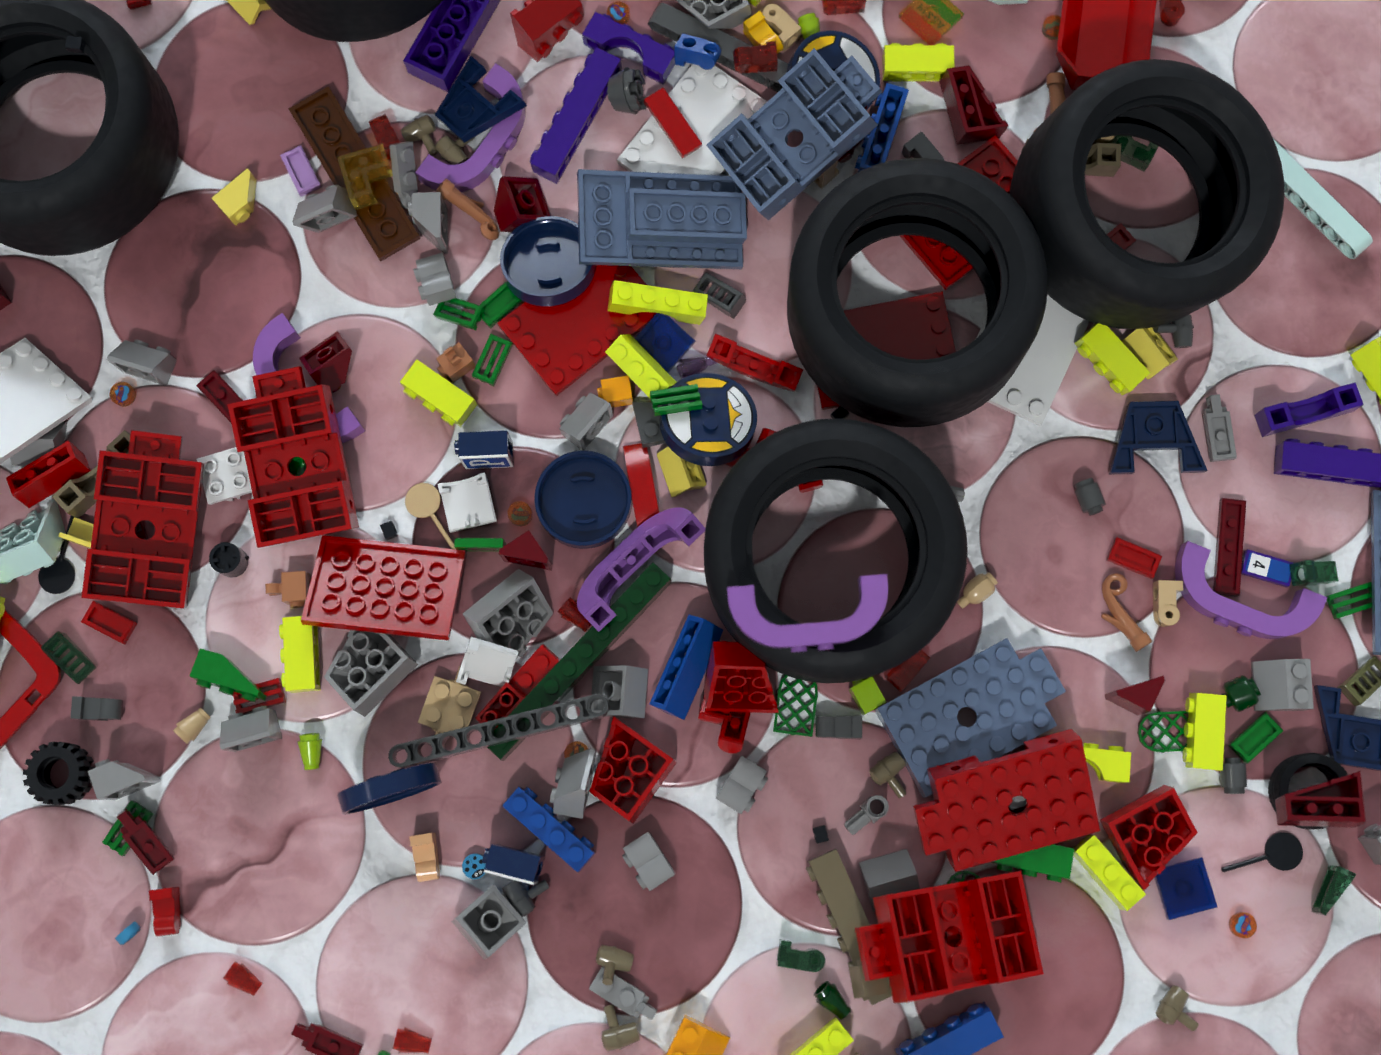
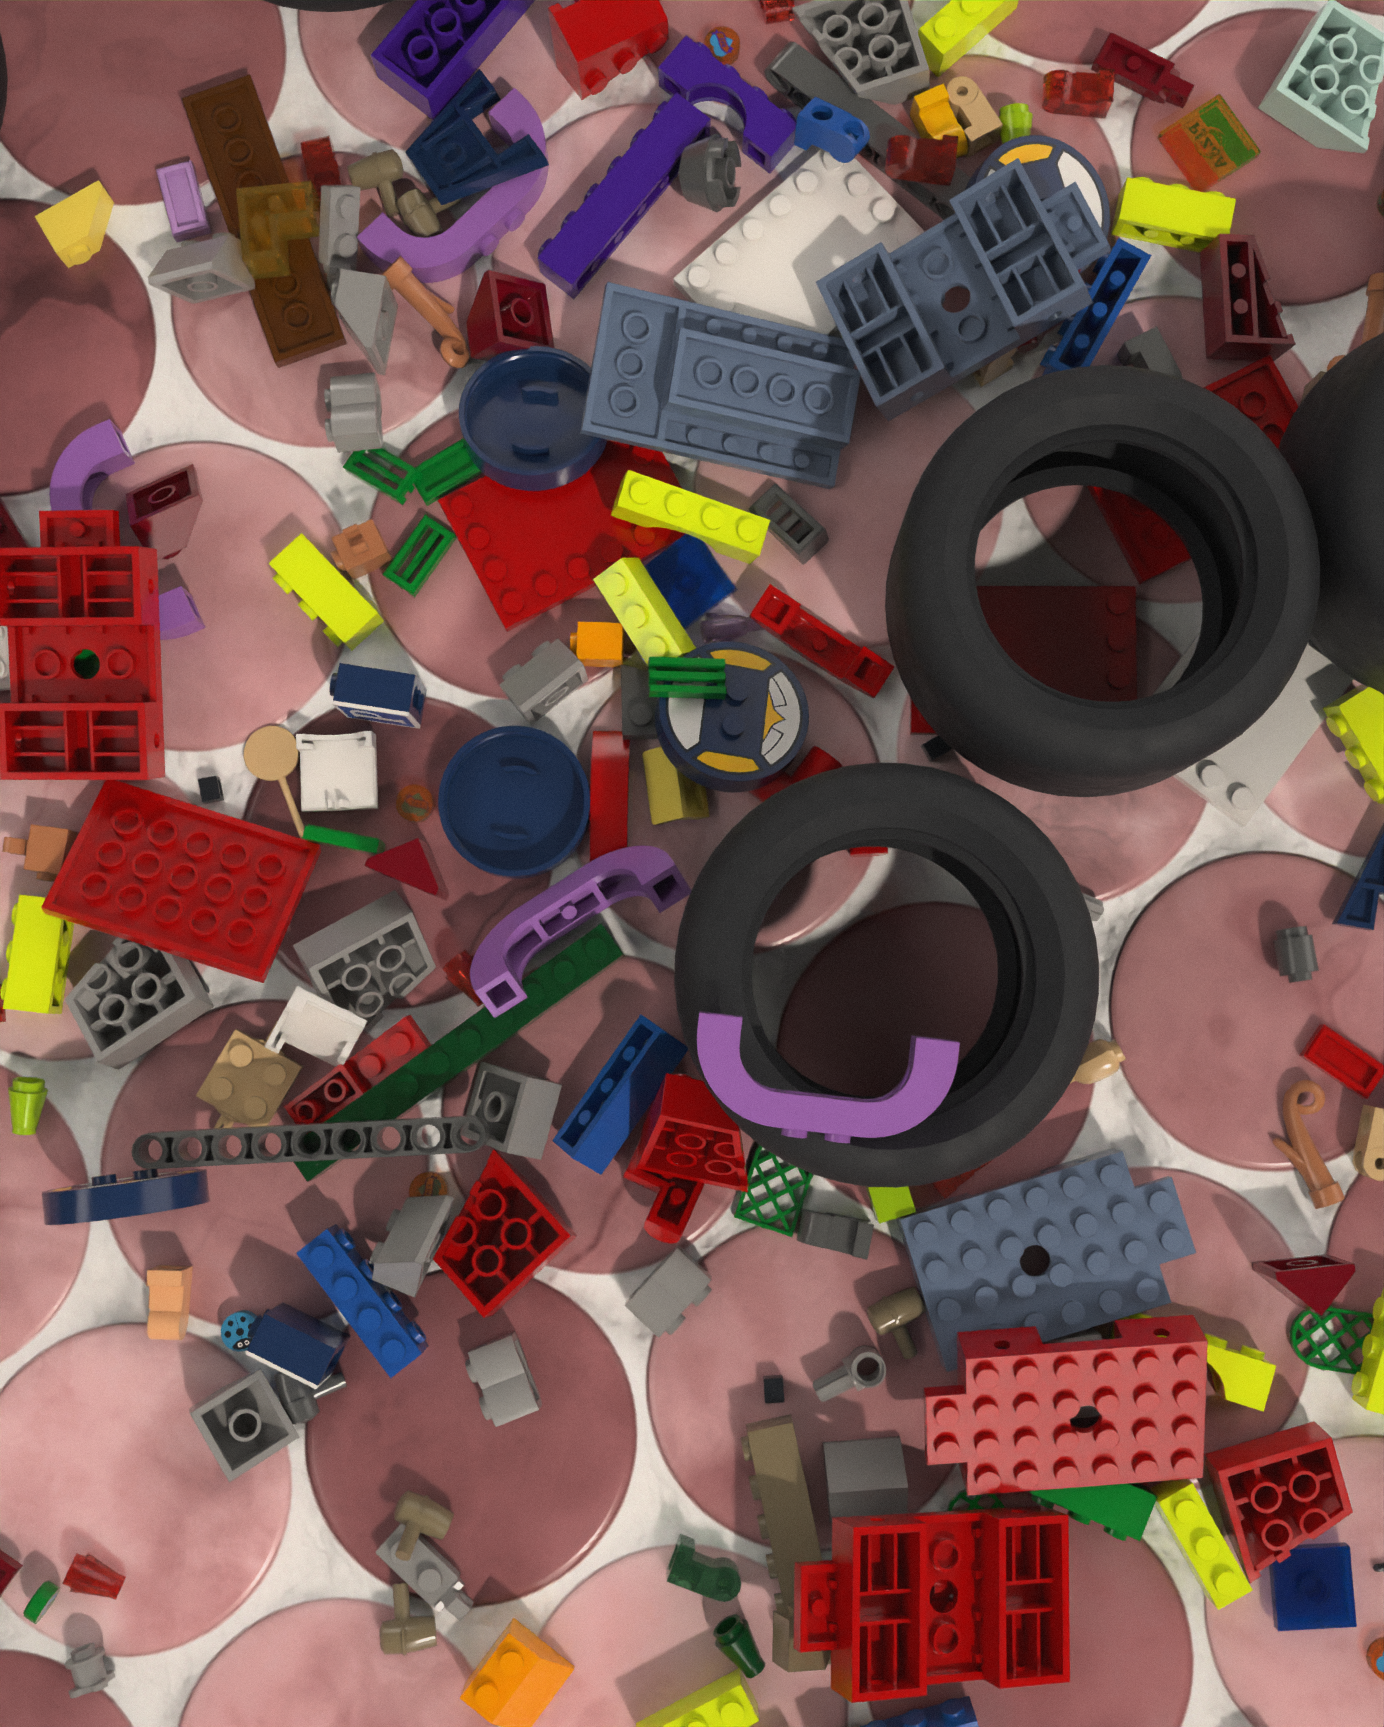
camera: 10 degrees right, 5 degrees up
(672, 122) = (771, 236): red tile -> none

